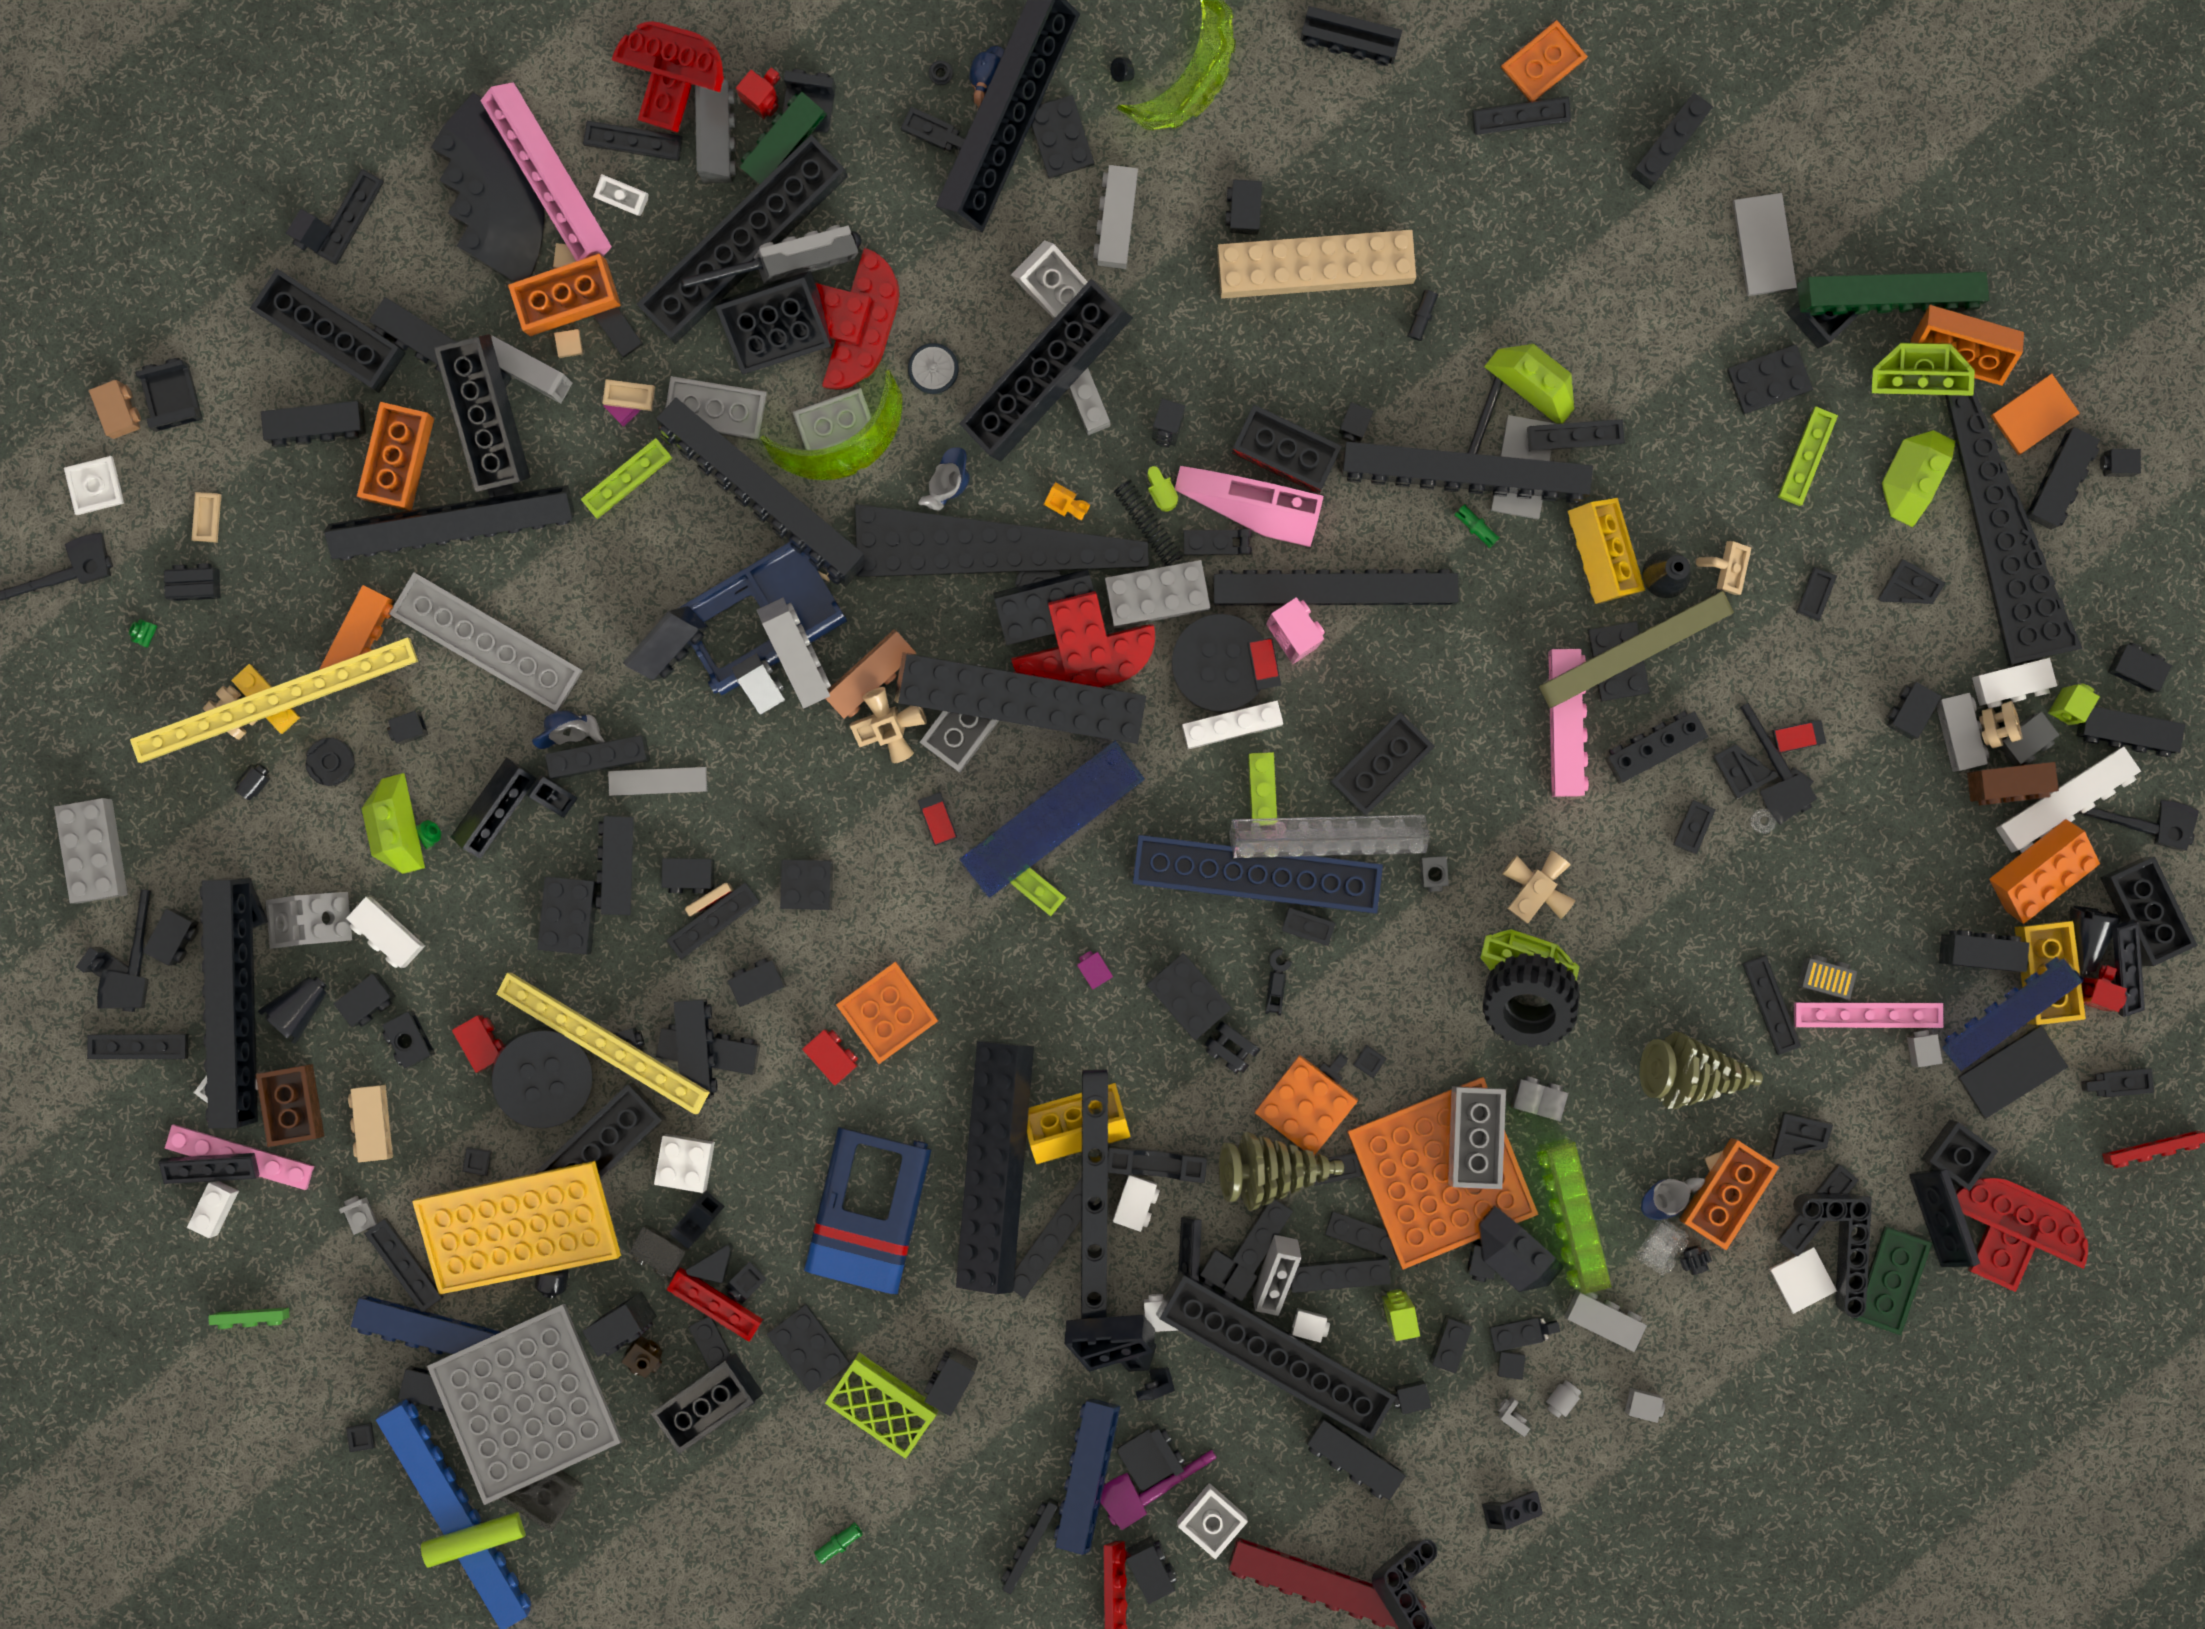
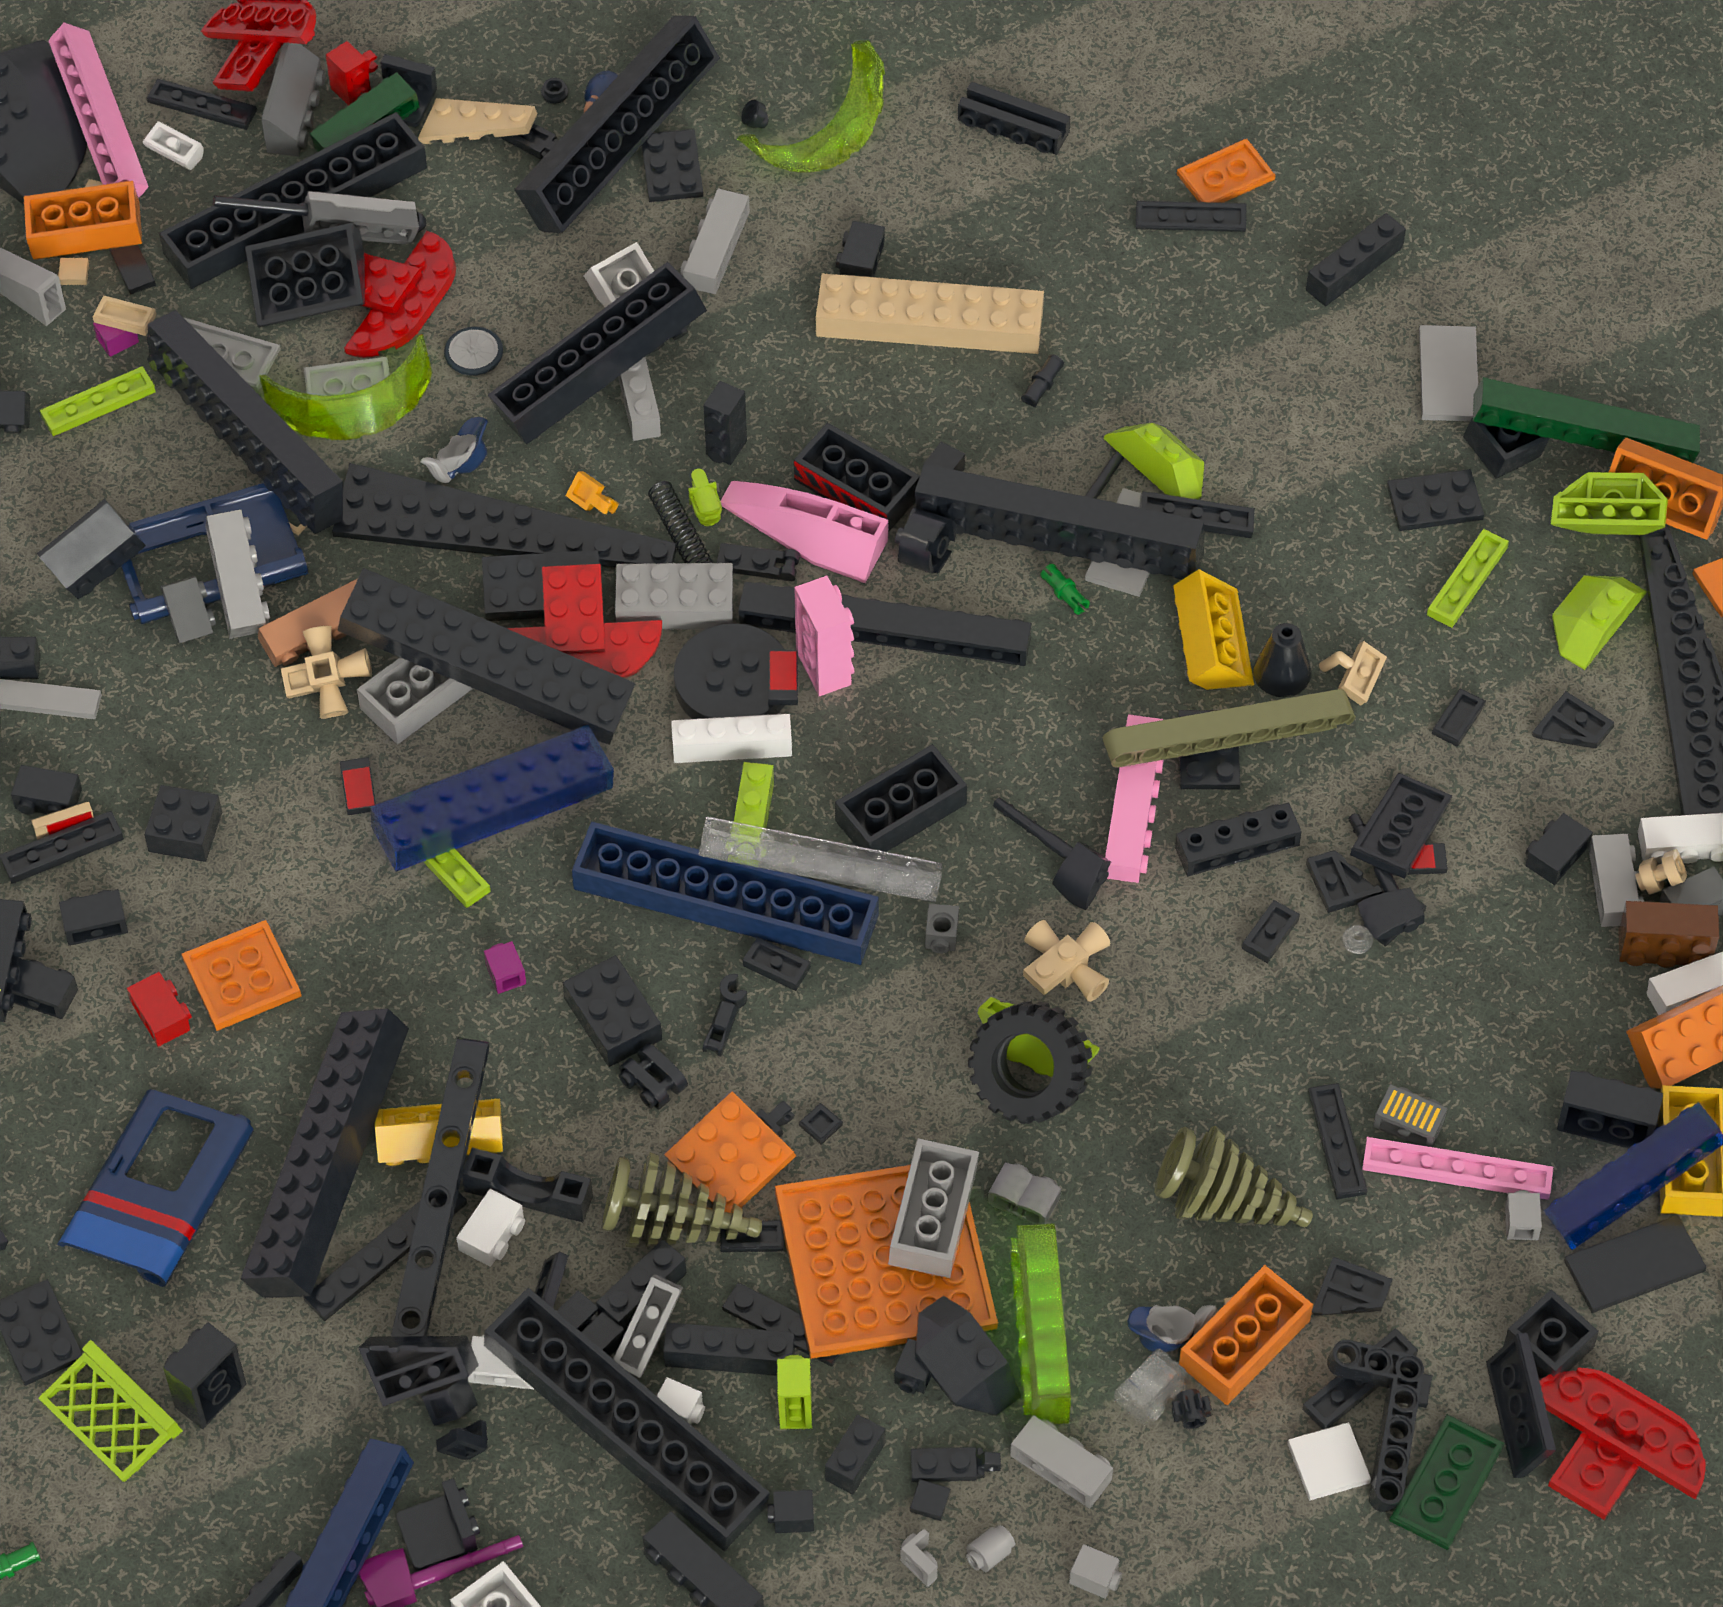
camera: 10 degrees right, 30 degrees down
(877, 121) = (475, 119): none -> tan wing
(1356, 505) = (925, 541): none -> black brick
(1538, 800) = (1083, 866): none -> black piece
(1785, 711) = (1401, 825): none -> black tile

